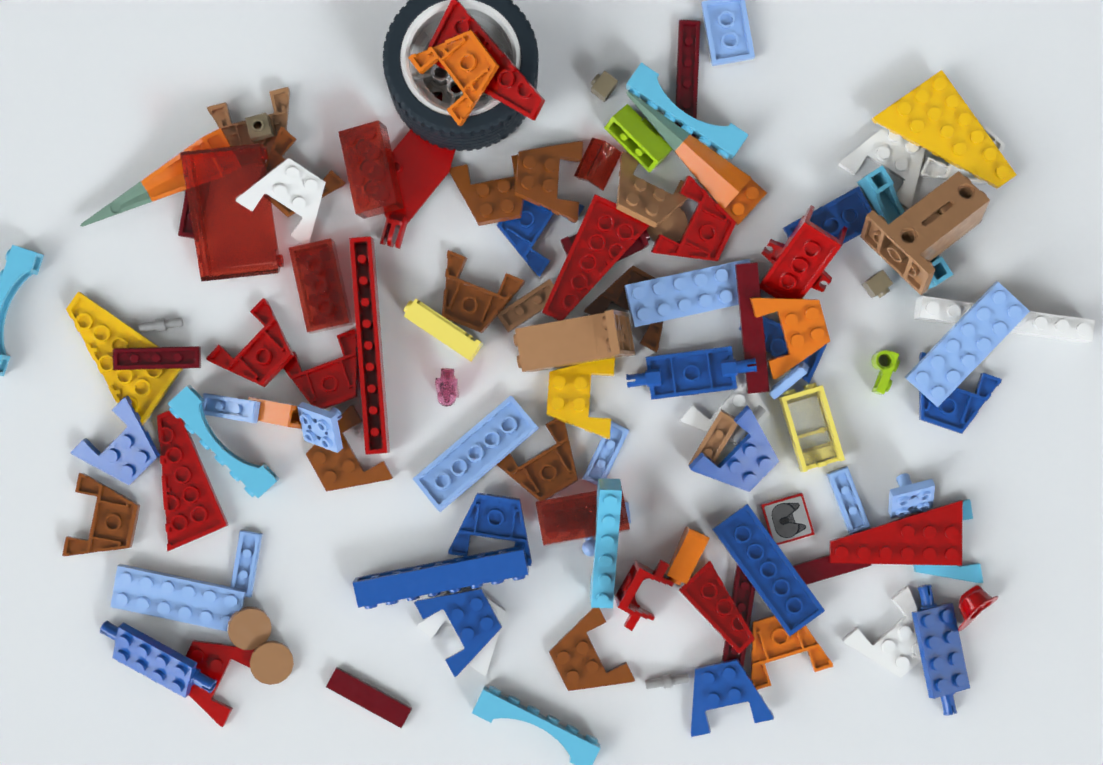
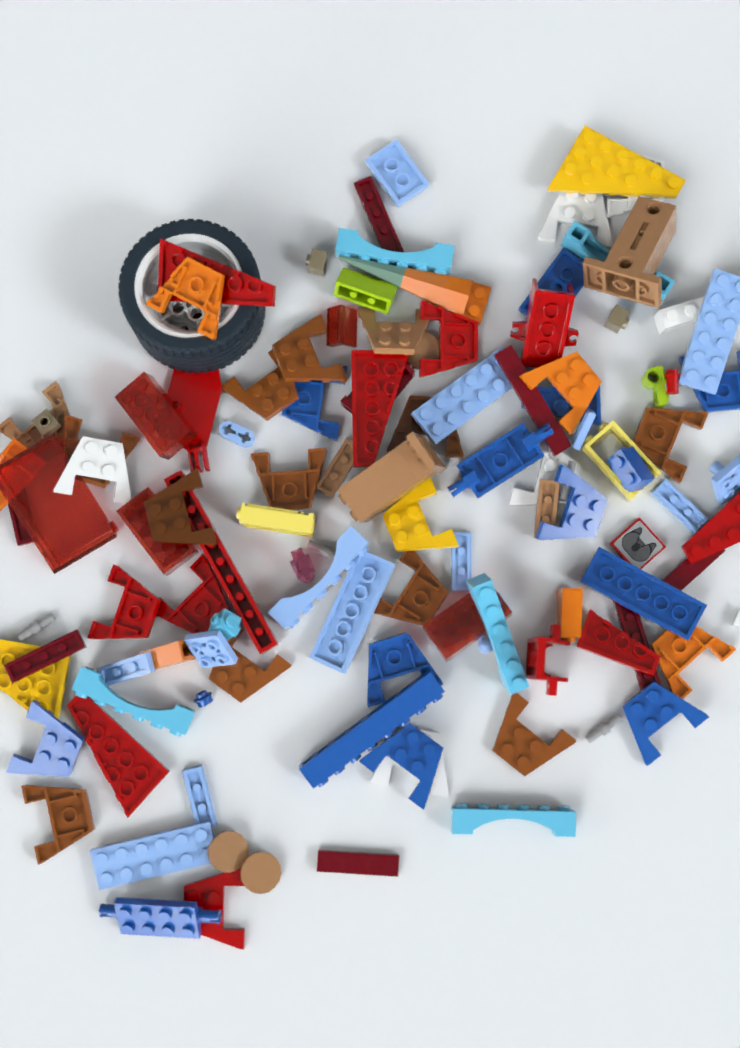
camera: 30 degrees left, 5 degrees down
(292, 470) = (203, 698): none -> blue plate
(339, 276) = (169, 514): none -> reddish brown wing
(346, 409) = (226, 622): none -> medium azure brick
(440, 227) = (239, 430): none -> light blue beam
(477, 382) = (325, 551): none -> light grey bar
(499, 390) = (348, 548): none -> light blue arch
(815, 442) = (630, 469): none -> brick
(861, 419) = (658, 433): none -> dark orange wing
(900, 374) = (672, 381): none -> red pin

